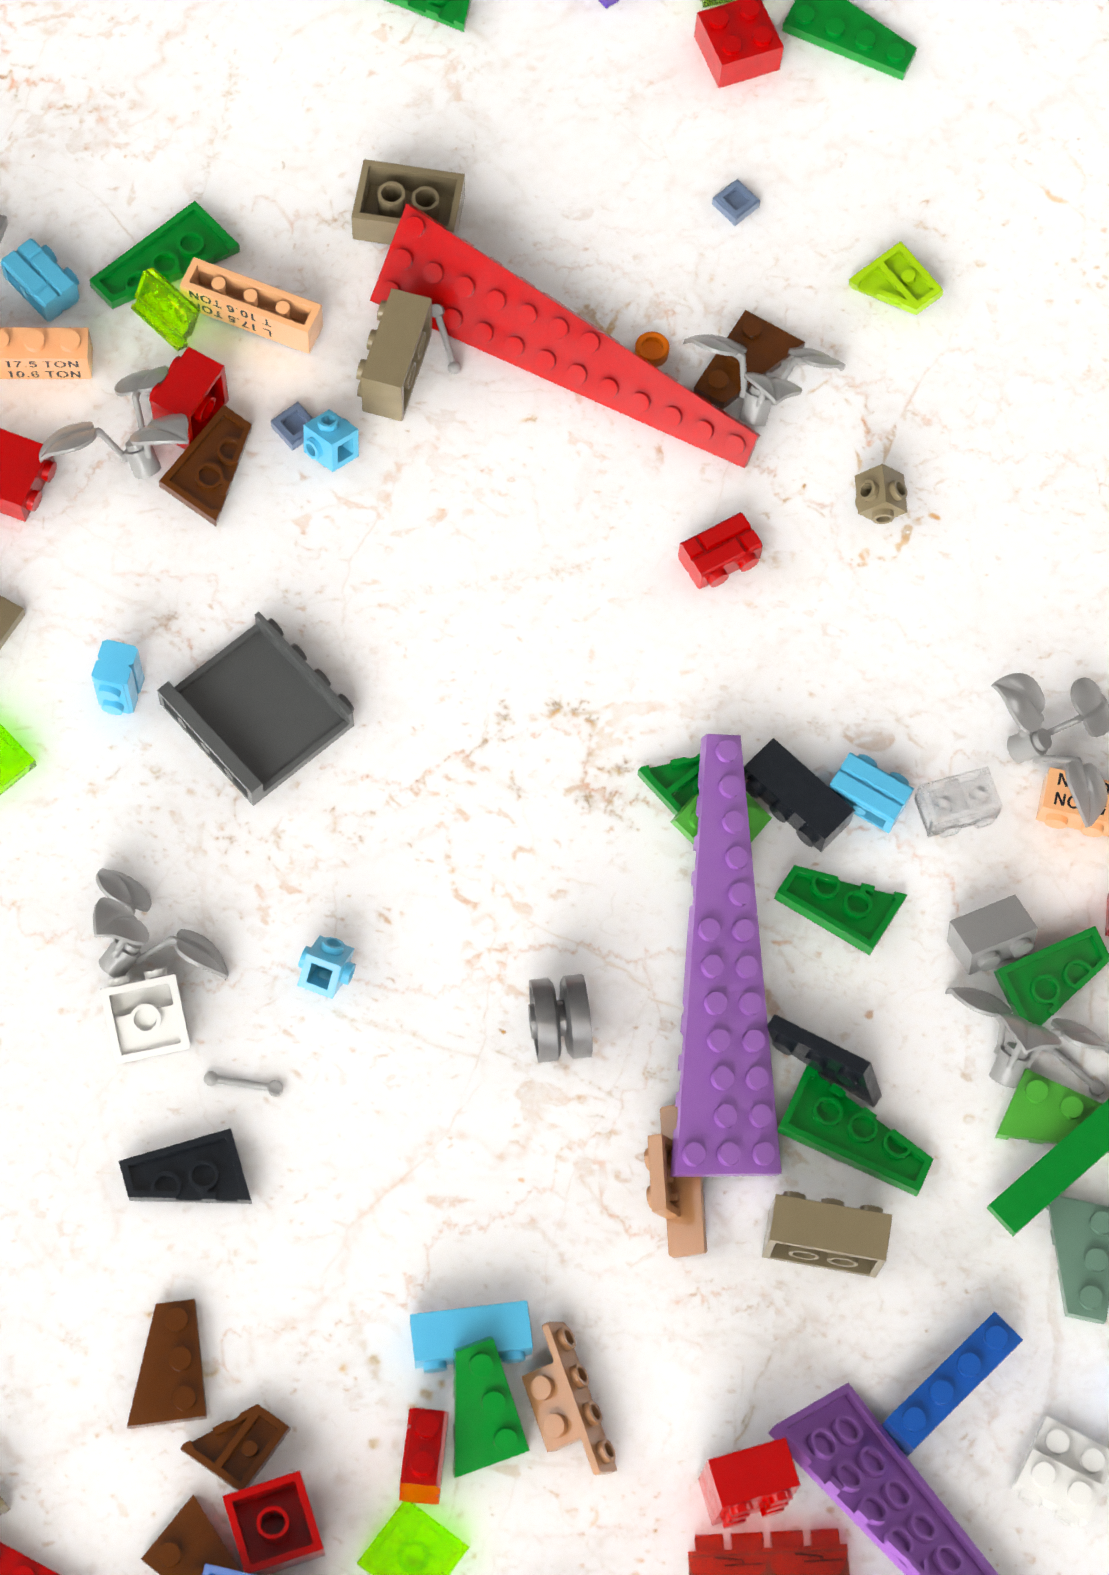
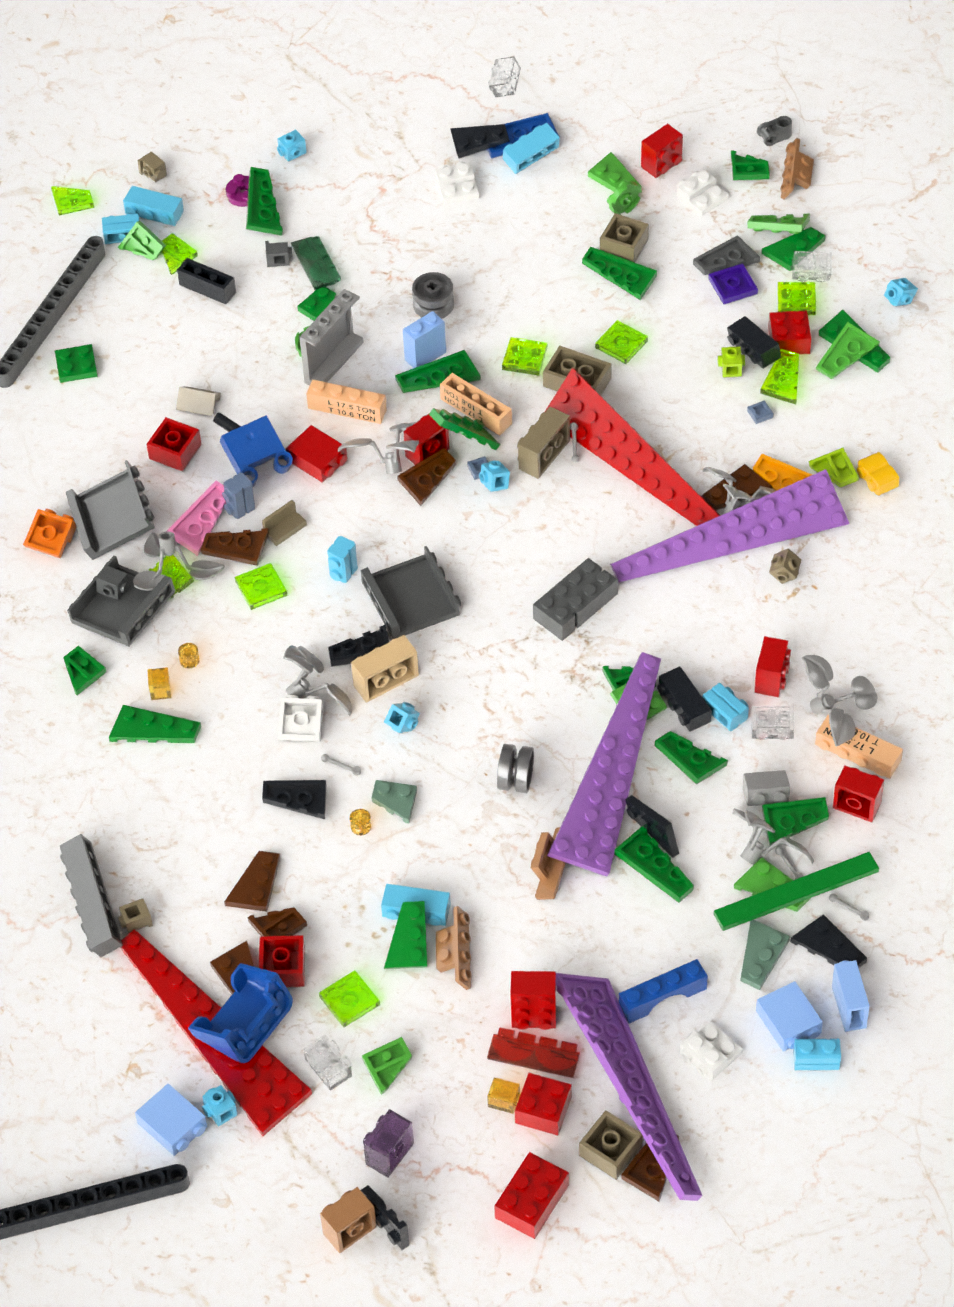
camera: 25 degrees right, 15 degrees down
(40, 279) = (370, 370): medium azure brick -> none
(105, 107) = (433, 293): none -> flat silver wheel
(122, 202) = (424, 340): none -> light blue brick
(165, 309) = (429, 394): clear neon green plate -> none
(210, 841) = (348, 650): none -> black wing
(252, 358) = (464, 425): none -> green wing
(264, 877) = (384, 668): none -> tan brick
(302, 188) = (524, 356): none -> clear neon green plate
(320, 1201) = (362, 826): none -> clear yellow wheel
(363, 1125) = (395, 798): none -> sand green wing
(423, 1456) = (370, 950): red brick -> none
(458, 120) = (621, 342): none -> clear neon green plate
(548, 648) = (579, 593): none -> dark grey piece
(653, 347) = (687, 472): orange tile -> none
(660, 119) = (731, 361): none -> lime brick
(687, 74) = (753, 342): none -> black brick
(720, 551) = (686, 575): red brick -> none
(753, 128) = (783, 378): none -> clear neon green wing
(820, 321) = (778, 473): none -> light orange wing
(827, 1234) = (620, 902): dark tan brick -> none
(843, 399) = (779, 516): none -> medium lavender wing
(844, 53) = (846, 350): none -> bright green wing
(927, 698) = (772, 666): none -> red brick
(972, 276) = (878, 473): none -> yellow brick

